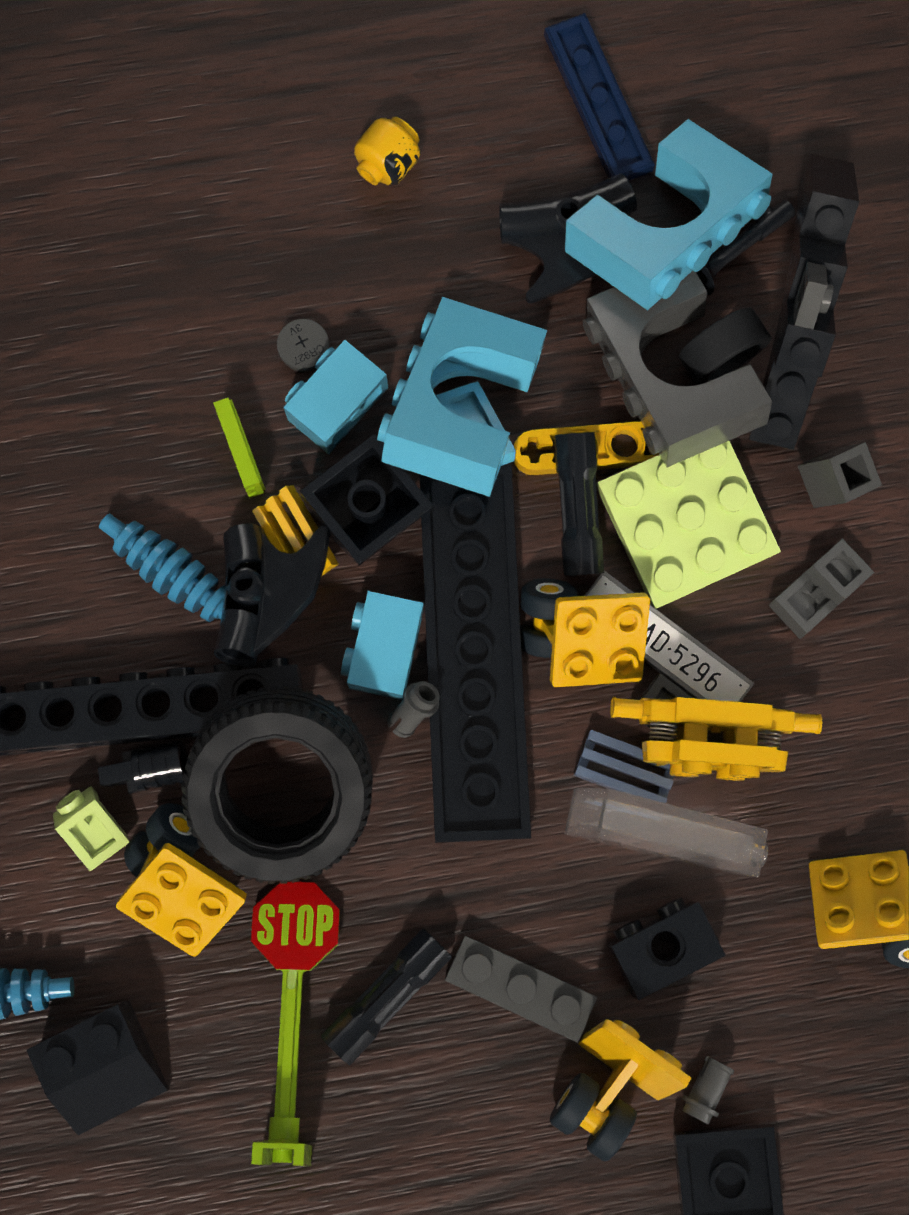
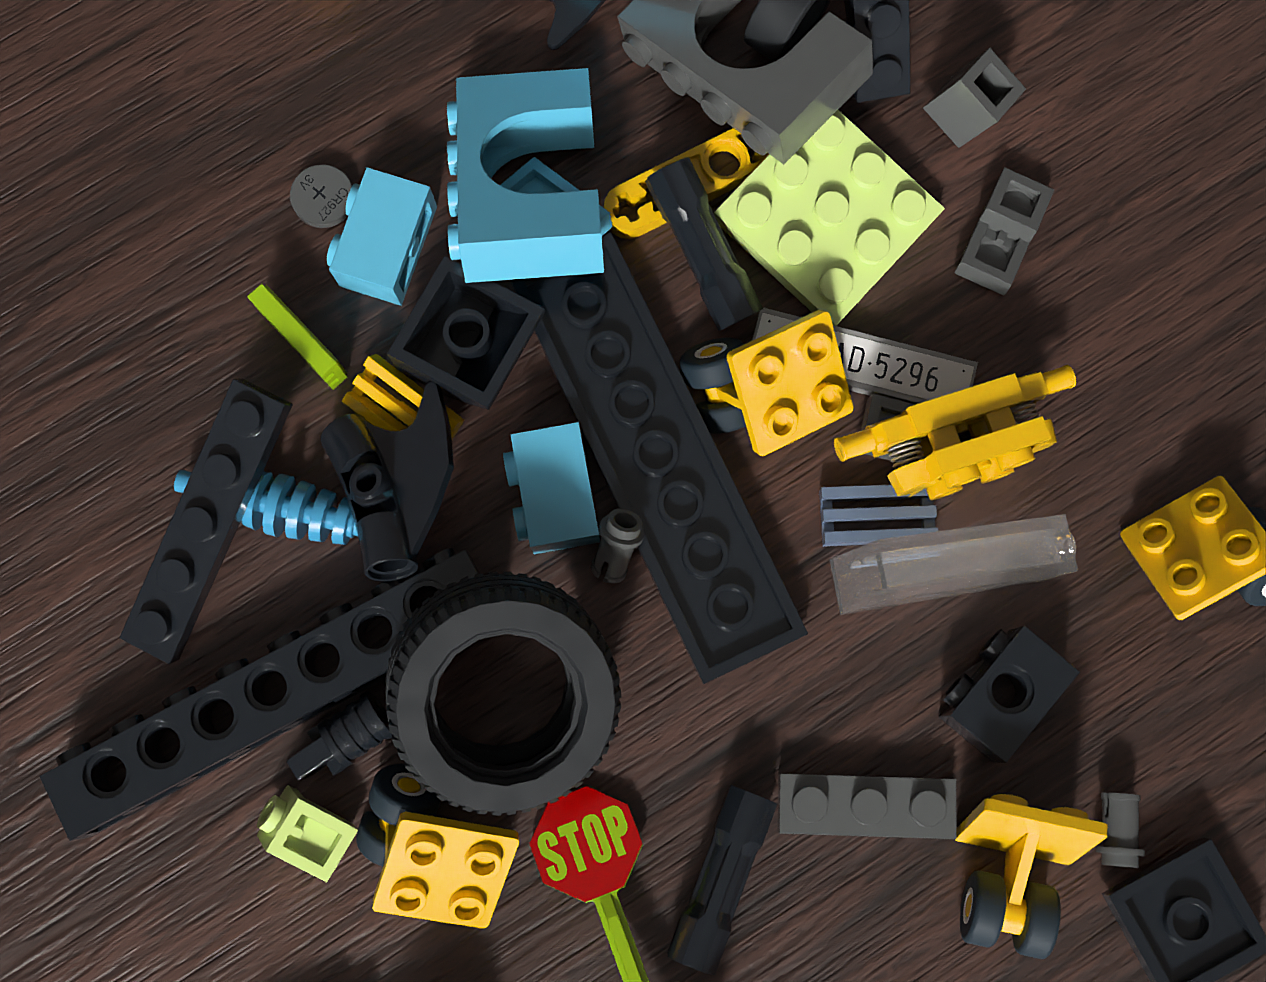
camera: 20 degrees left, 0 degrees up
(112, 561) = (205, 520): none -> black plate

